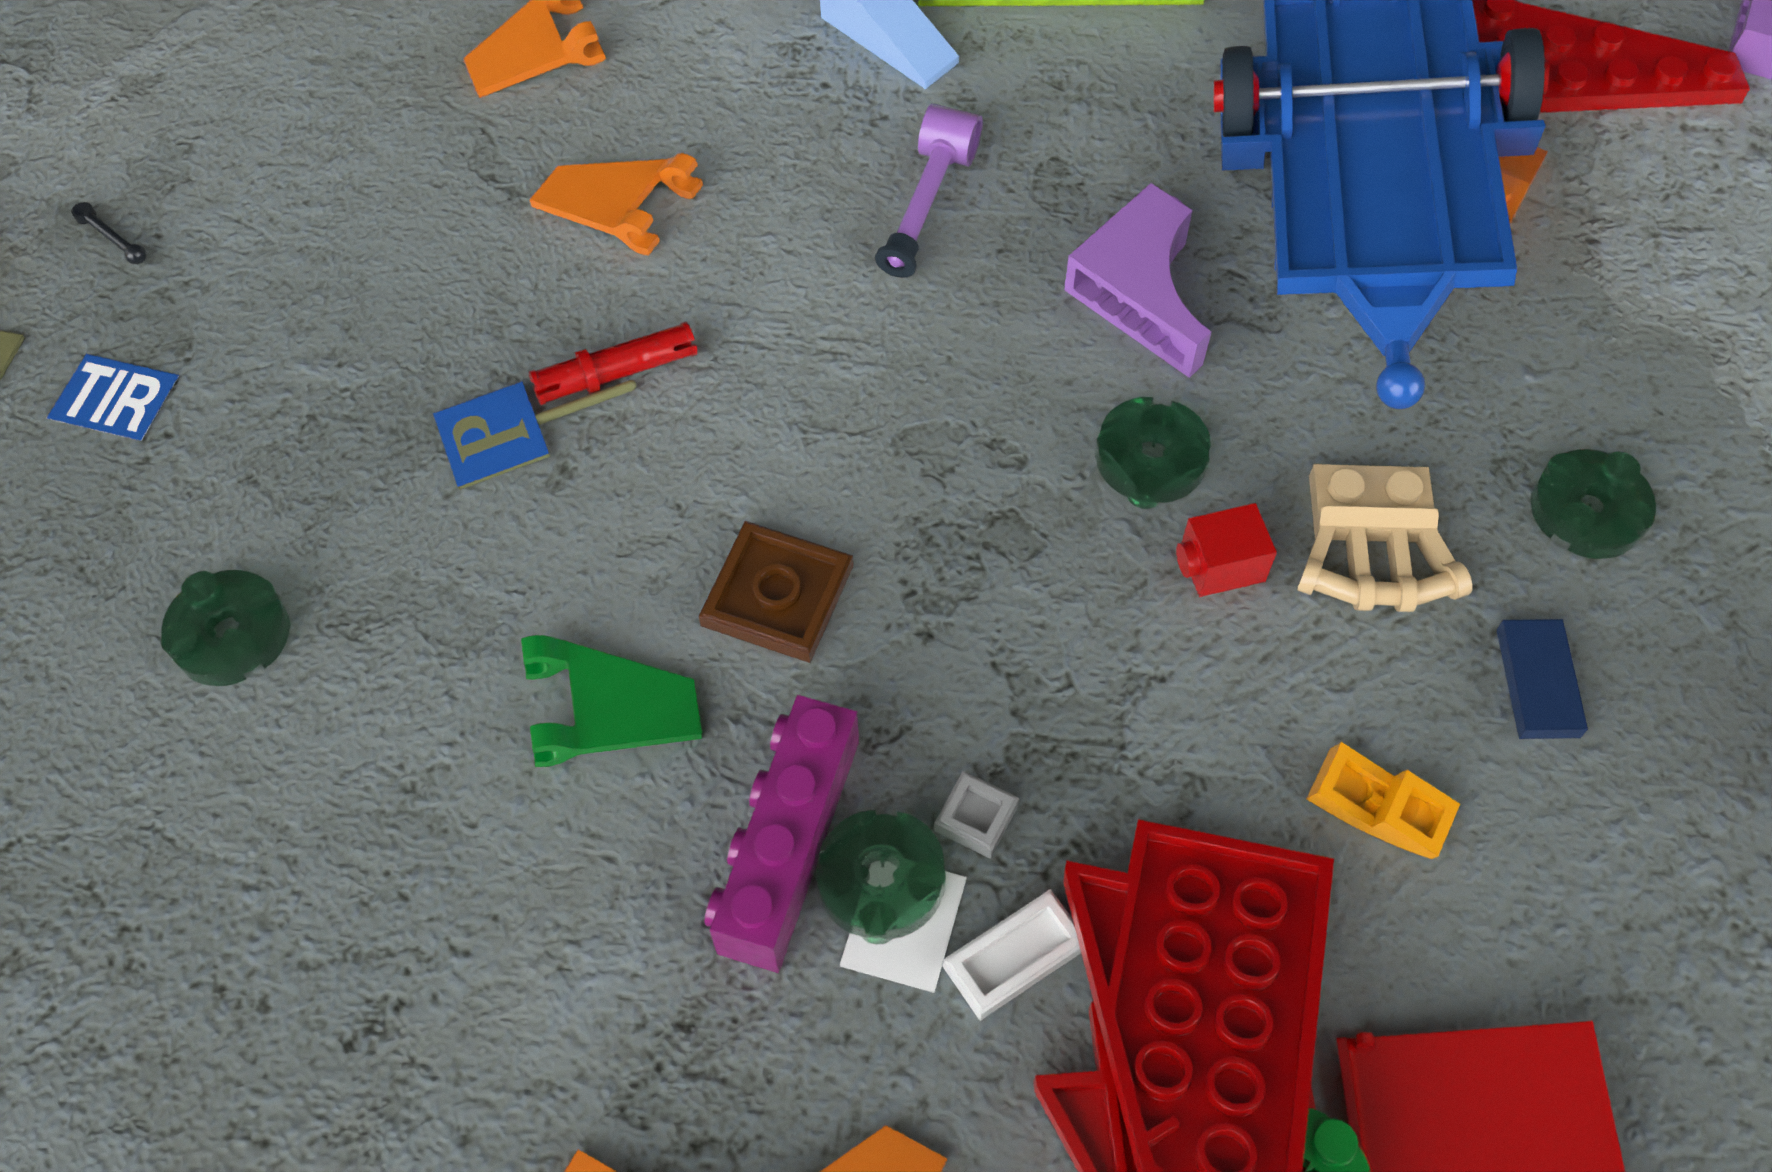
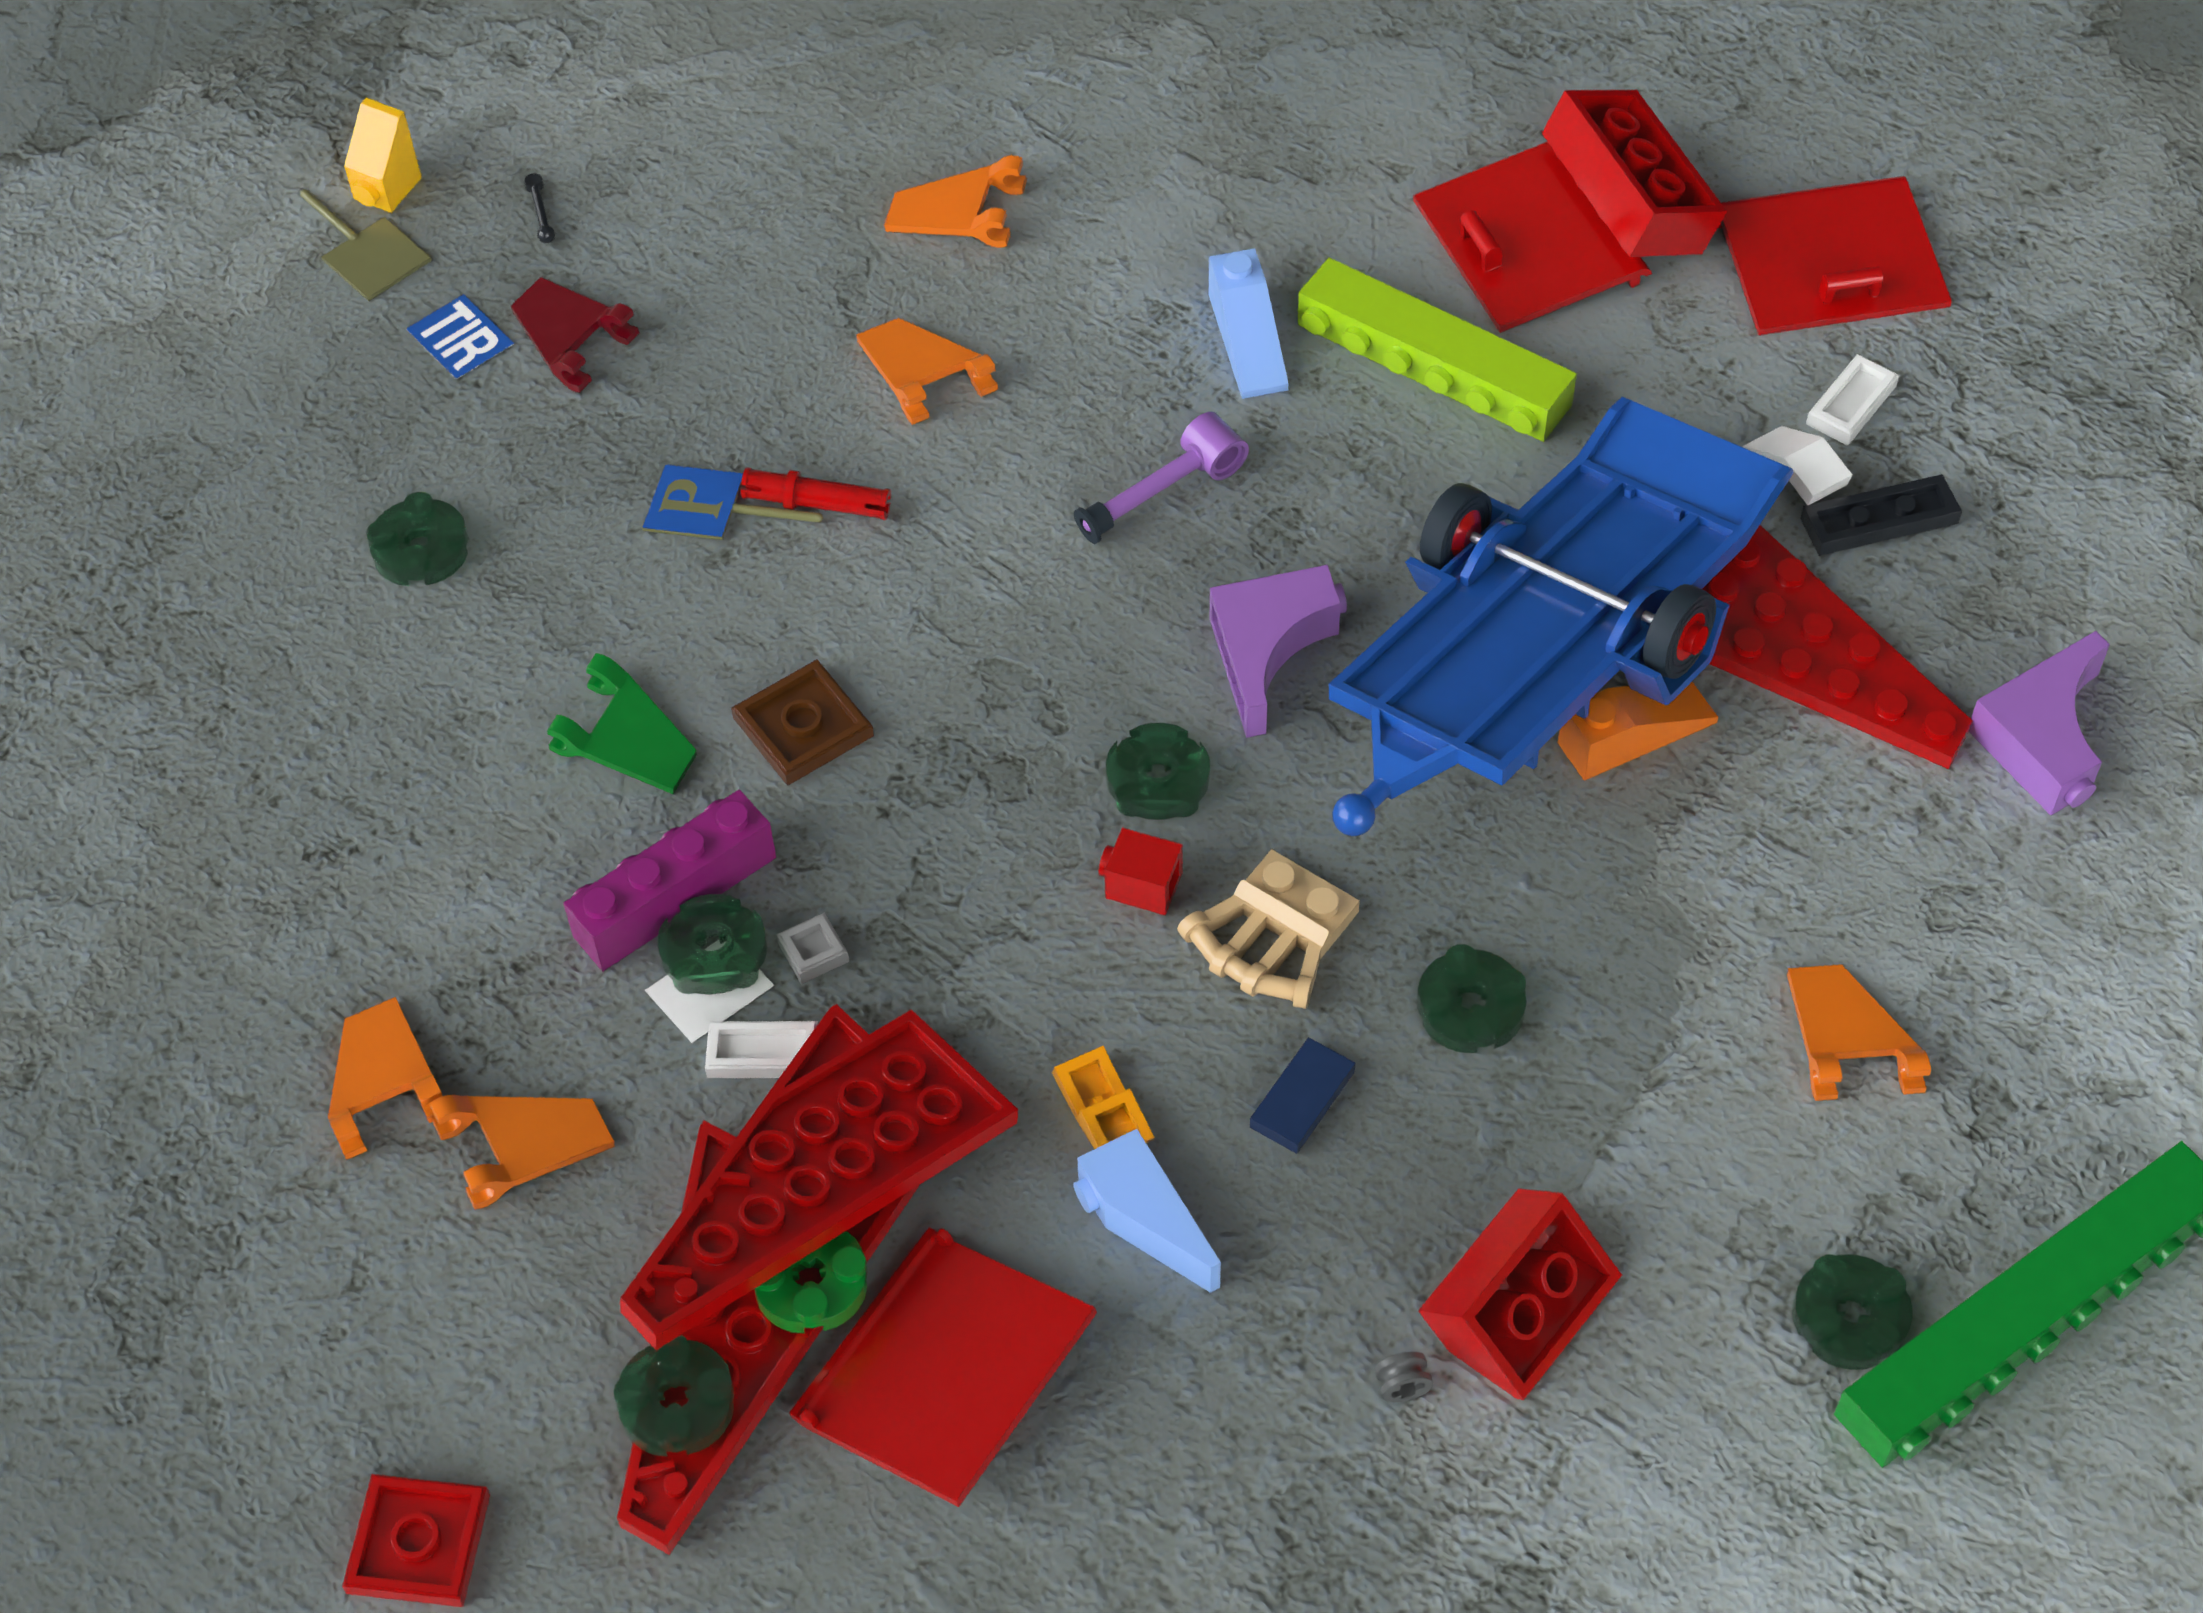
camera: 35 degrees right, 5 degrees down
(223, 328) = (562, 321): none -> dark red flag
(1515, 879) = (1143, 1208): none -> light blue slope

